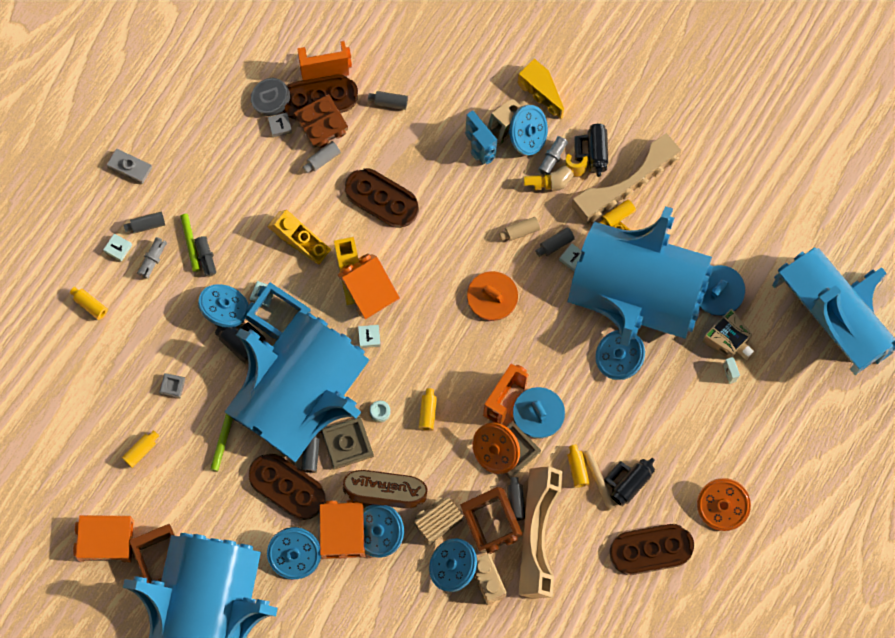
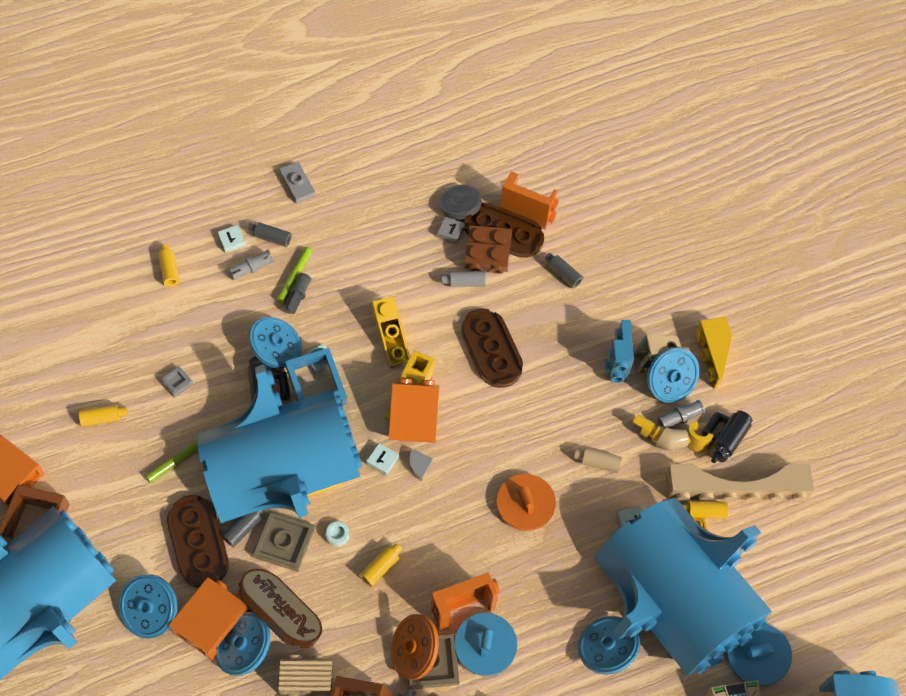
camera: 35 degrees right, 10 degrees down
(397, 321) = (419, 464): none -> light grey tile
(555, 242) = (624, 494): dark grey cylinder -> none

